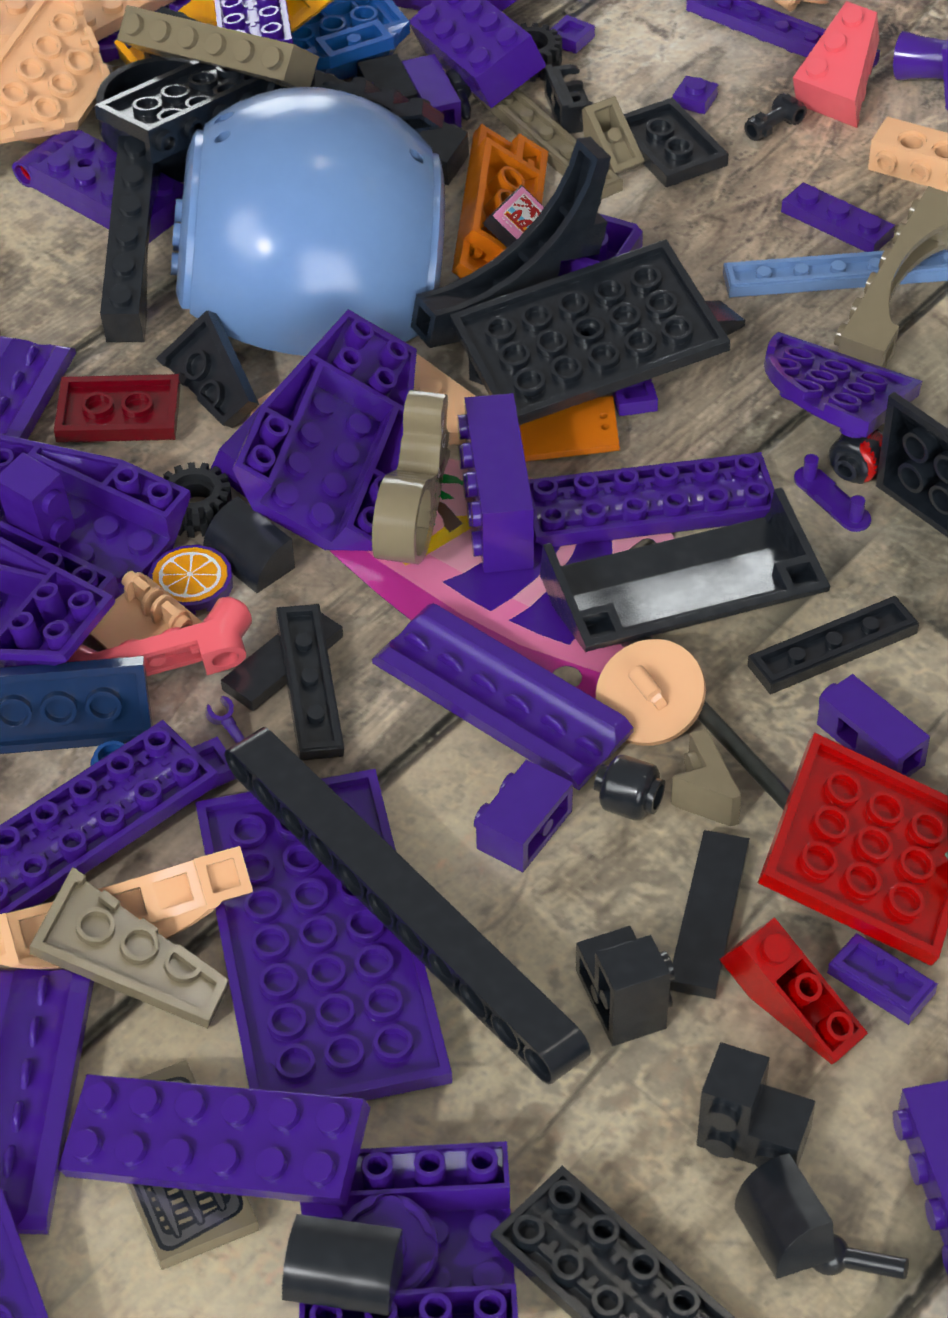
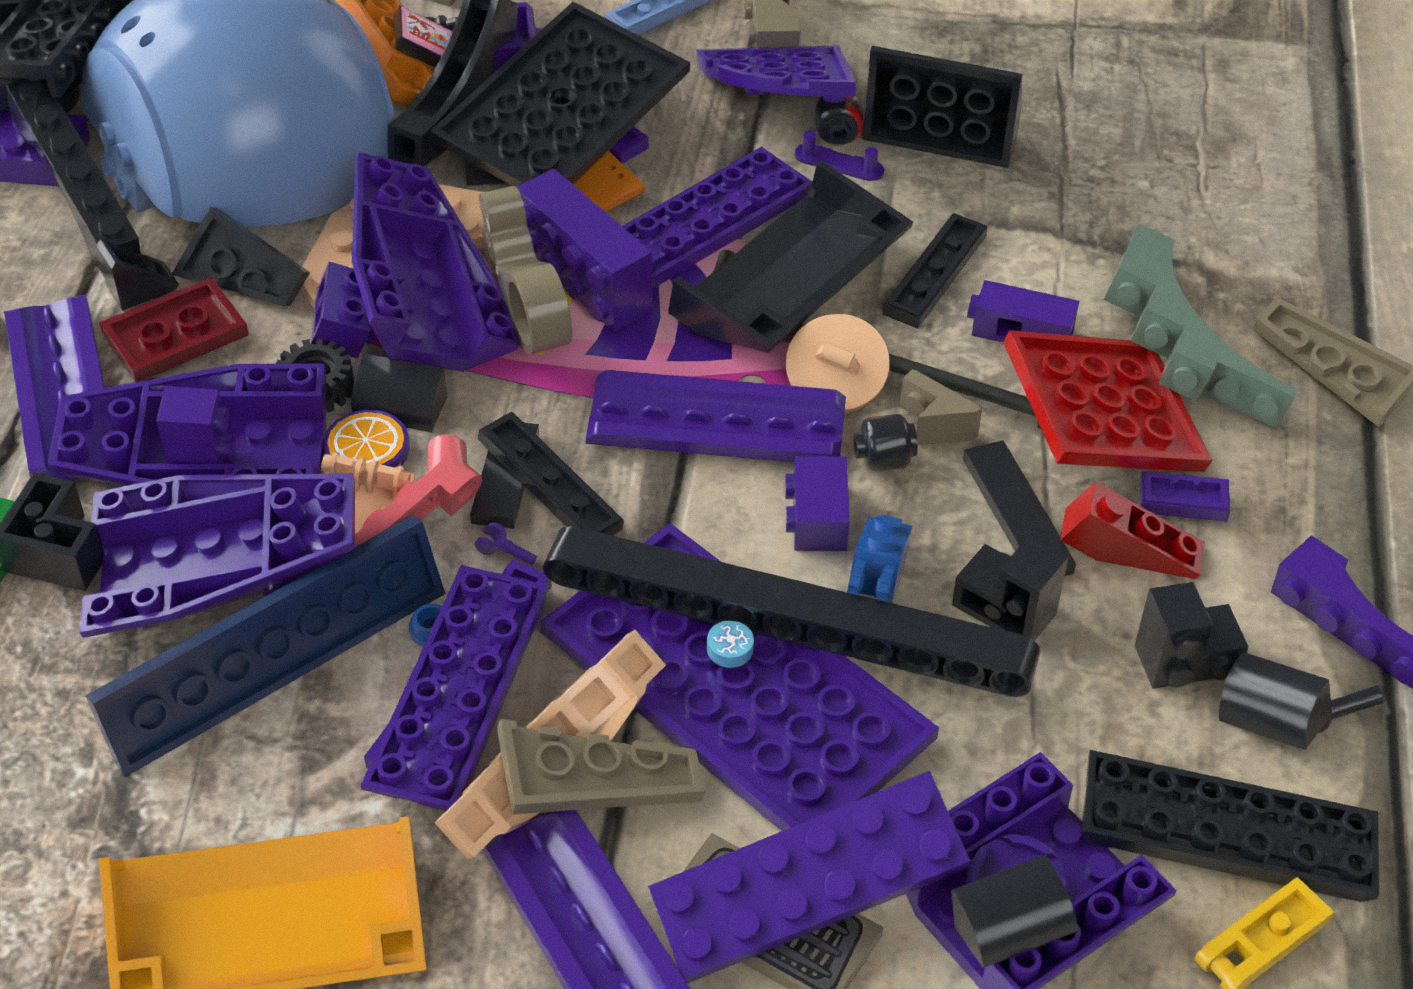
camera: 35 degrees left, 0 degrees up
(122, 346) = (133, 276): none -> black slope
(329, 902) = (730, 644): none -> medium azure tile
(518, 892) = (880, 558): none -> blue hinge

